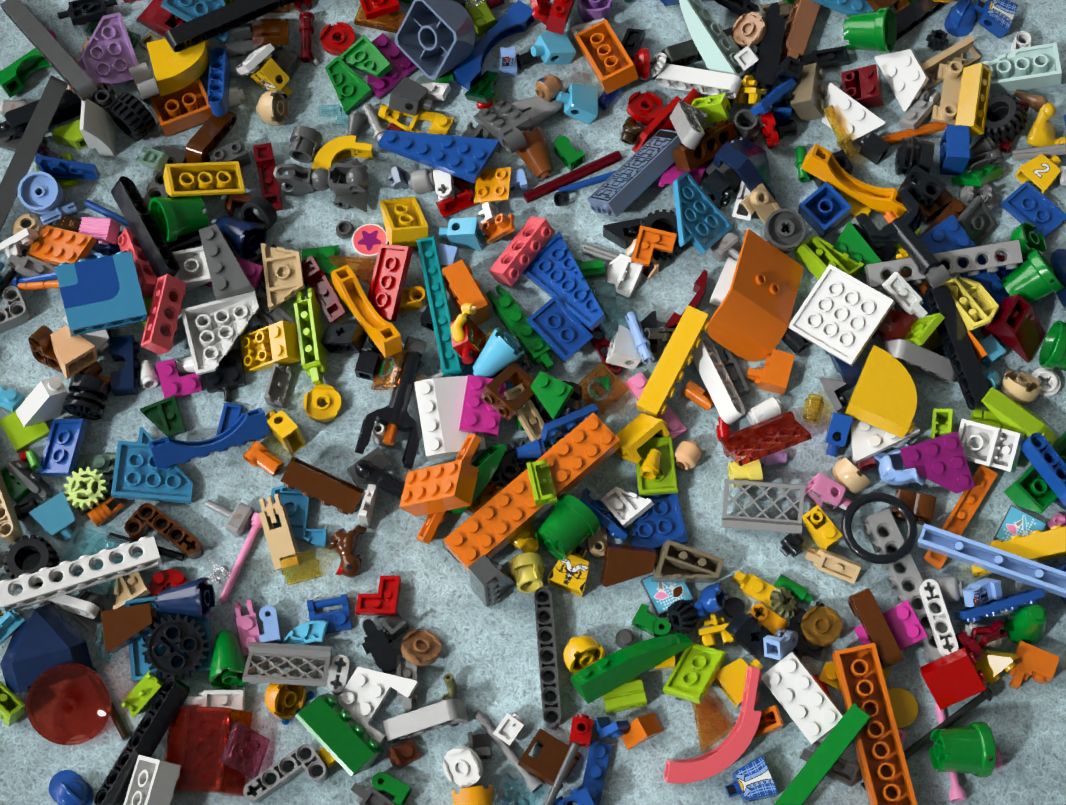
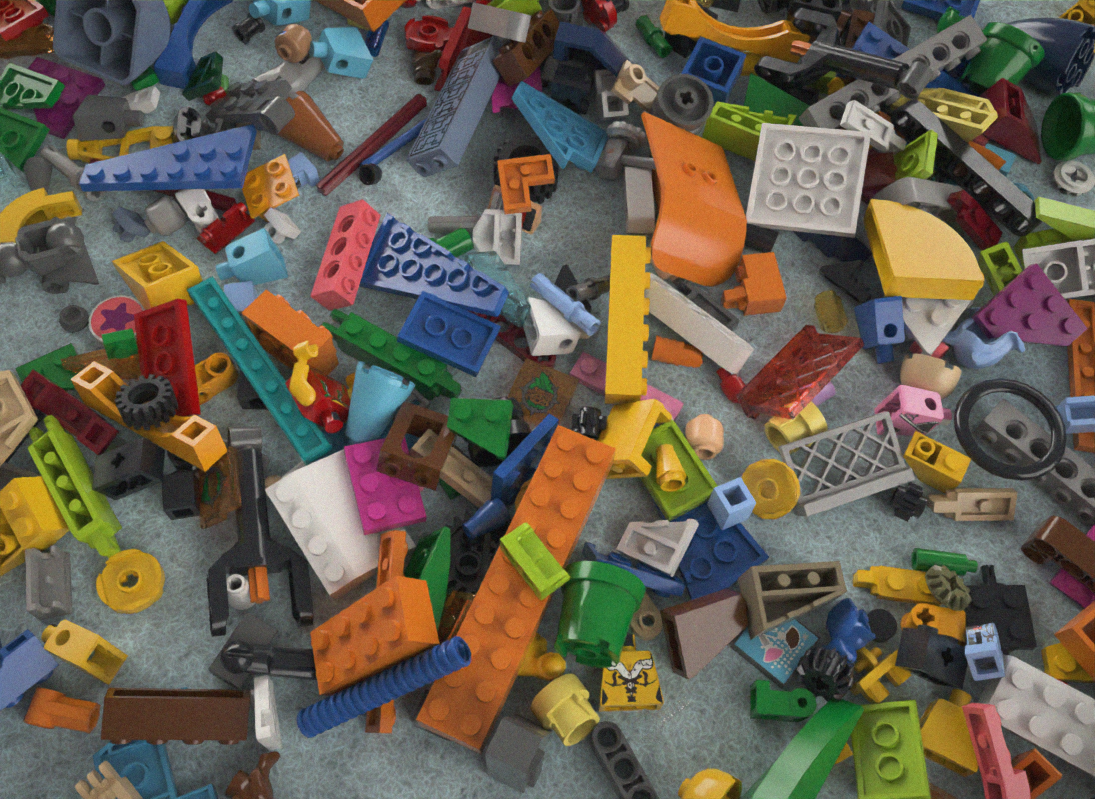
camera: 30 degrees left, 5 degrees down
(365, 260) = (120, 344): none -> green plate
(368, 311) = (132, 397): none -> black tyre
(433, 516) = (384, 687): none -> blue piece
(454, 122) = (180, 124): none -> black beam
(500, 229) = (303, 239): orange hips -> none
(508, 61) = (225, 34): light blue leg -> none
(567, 153) = (353, 117): green leg -> none
(617, 231) = (468, 186): black slope -> none
(620, 418) = (589, 422): none -> black gear
(625, 638) = (756, 746): dark grey plate -> none
(677, 500) = (731, 503): none -> light blue brick
(699, 289) = (607, 219): dark red slope -> none
(709, 502) = (772, 487): none -> yellow tile
(738, 230) = (633, 135): none -> white gear
(764, 411) = (772, 339): white head -> none
(821, 626) = (1016, 598): pearl gold tile -> none
(920, 505) = (1035, 374): reddish brown brick -> none
(946, 386) = (974, 220): none -> dark red hinge
(1020, 387) = (1059, 188): tan cylinder -> none

